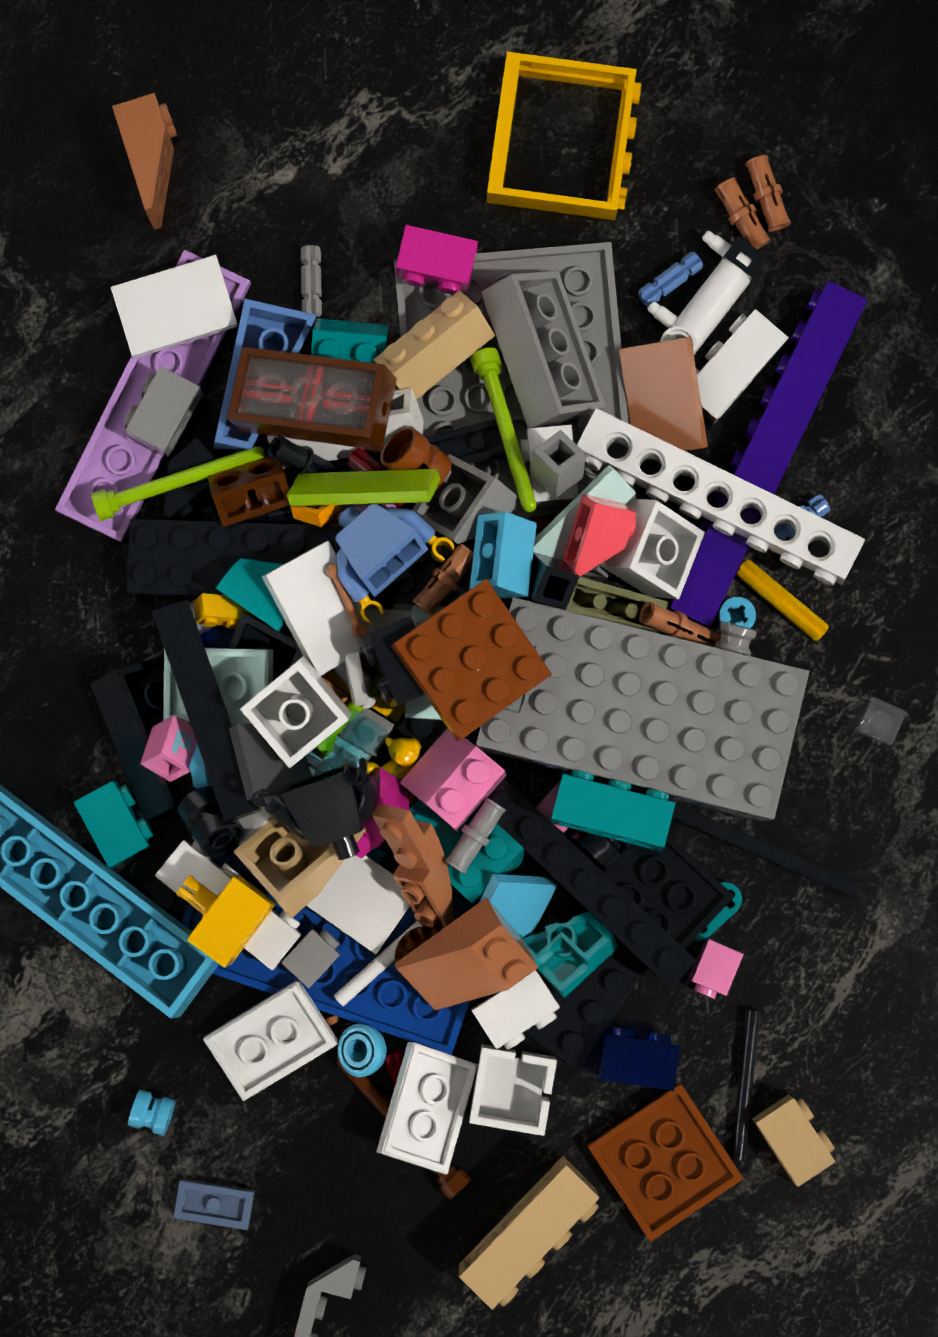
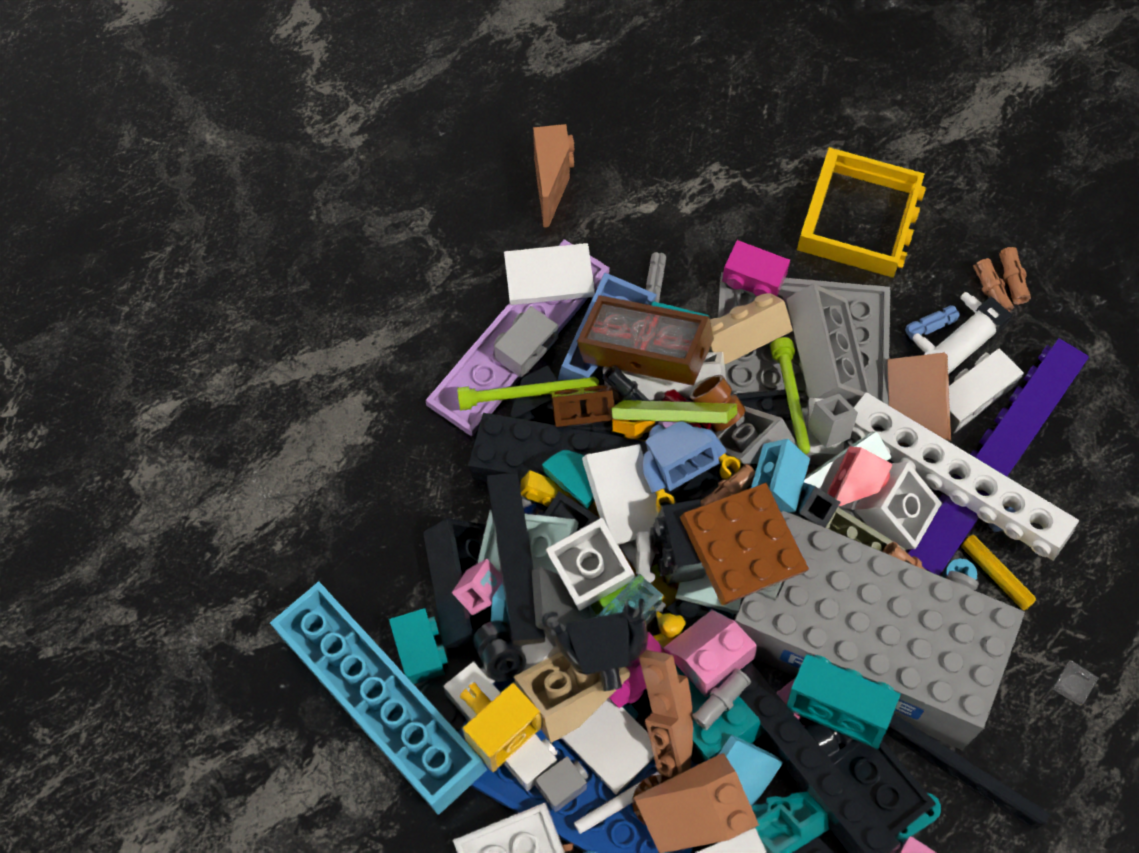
camera: 15 degrees right, 20 degrees down
(358, 629) = (651, 515): nougat hinge -> none

